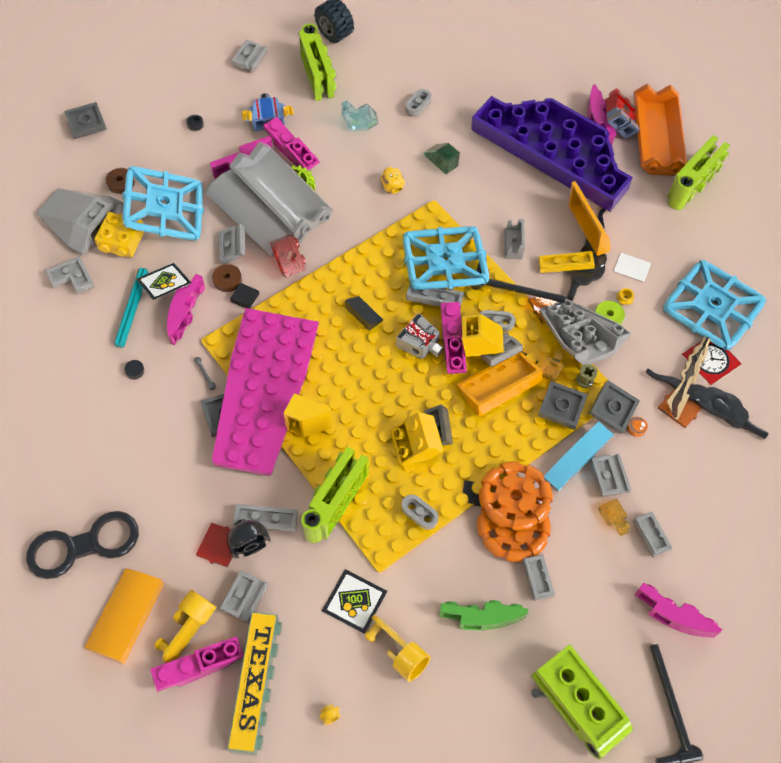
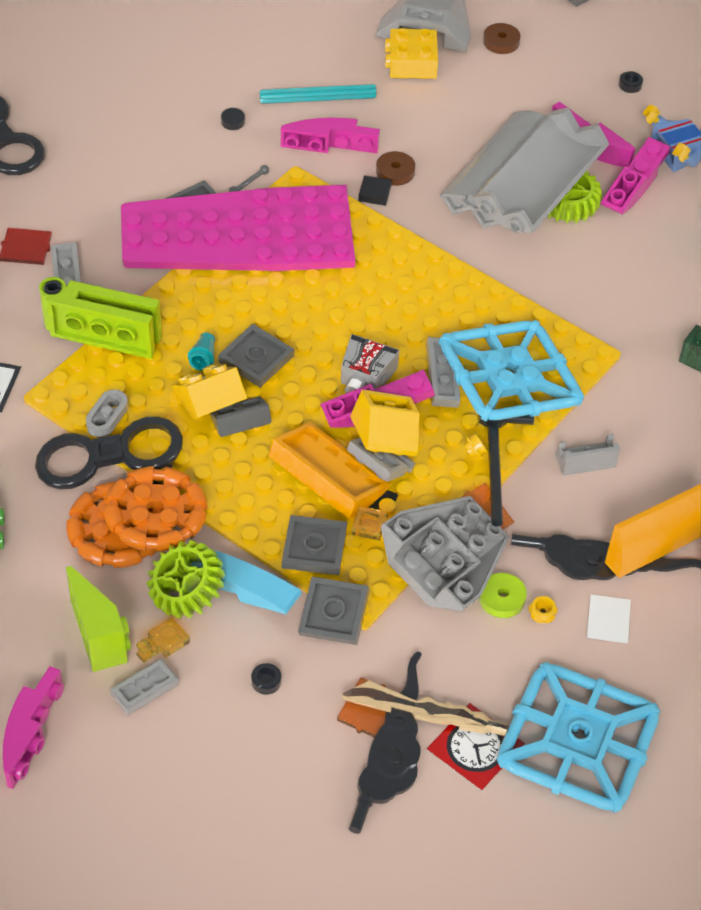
camera: 75 degrees right, 10 degrees down
(71, 271) = (343, 34): light grey plate -> none
(154, 207) = (467, 87): medium azure plate -> none
(163, 281) = (359, 105): sticker -> none
(232, 243) = (444, 156): light grey plate -> none
(247, 538) = (31, 255): black cylinder -> none
(287, 266) = (442, 195): clear red brick -> none
(307, 416) = (203, 267): yellow slope -> none
(363, 312) = (388, 303): black slope -> none
(377, 436) = (202, 352): none -> teal cone
(390, 403) = (256, 355): none -> dark grey plate
(392, 180) = (628, 295): yellow head -> none
(452, 520) = (108, 452): none -> black bar
(500, 294) = (475, 446): none -> yellow plate
(500, 317) = (431, 449): light grey plate -> none
(538, 577) = (49, 560): light grey plate -> none
(566, 262) = (574, 524): yellow tile -> none
(576, 495) = (194, 584): none -> lime gear
(586, 376) = (371, 565): olive bush -> none
(610, 475) = (224, 624): light grey plate -> none
(612, 551) = (99, 623): none -> lime slope
(637, 426) = (316, 652): orange tile -> none
(652, 460) = (266, 678): none -> black tile

